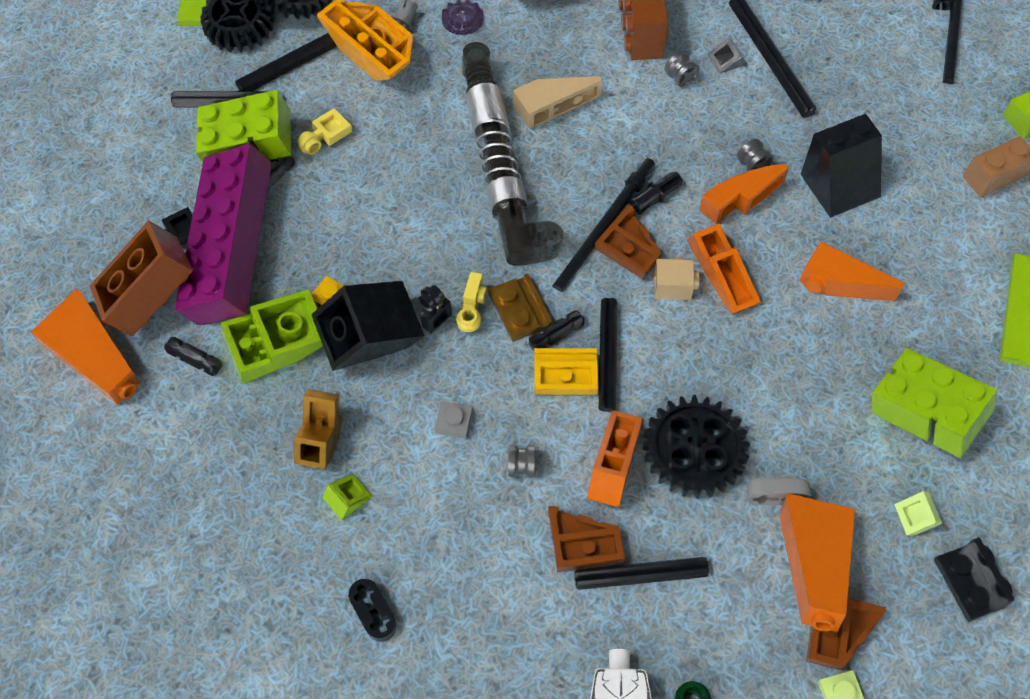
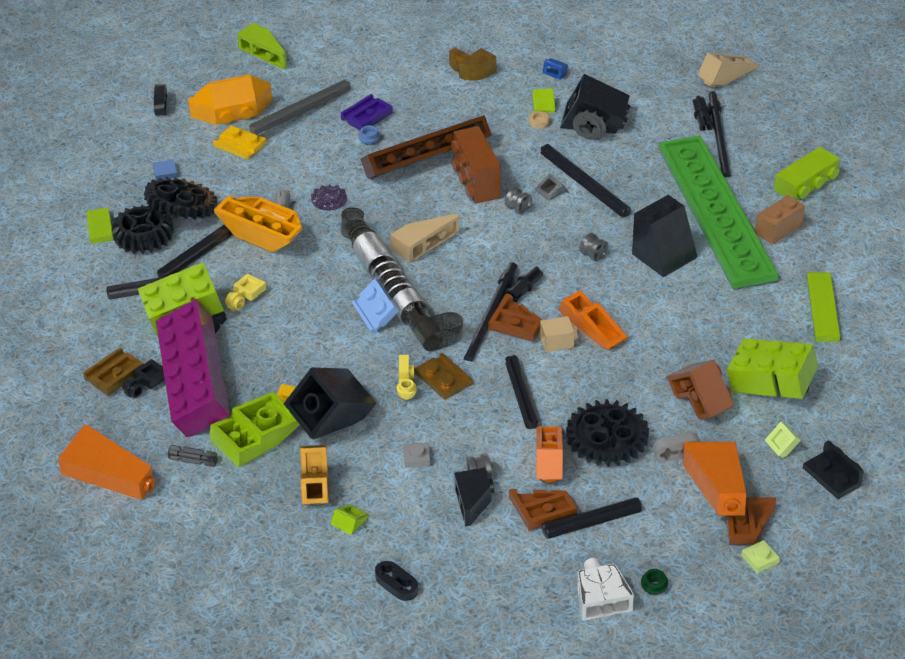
camera: 15 degrees left, 20 degrees down
(134, 211) = (112, 371): none -> pearl gold plate
(140, 279) = (139, 403): dark orange brick -> none
(436, 308) = (380, 382): black plate -> none
(467, 188) = (375, 306): none -> light blue plate
(502, 501) = (473, 493): none -> black slope
(557, 330) = (477, 385): black axle -> none
(565, 371) = (493, 407): yellow plate -> none
(742, 191) = (591, 269): orange slope -> none
(835, 410) = (703, 387): none -> dark orange brick
(845, 276) = (685, 308): orange slope -> none
(924, 139) = (718, 212): none -> bright green plate

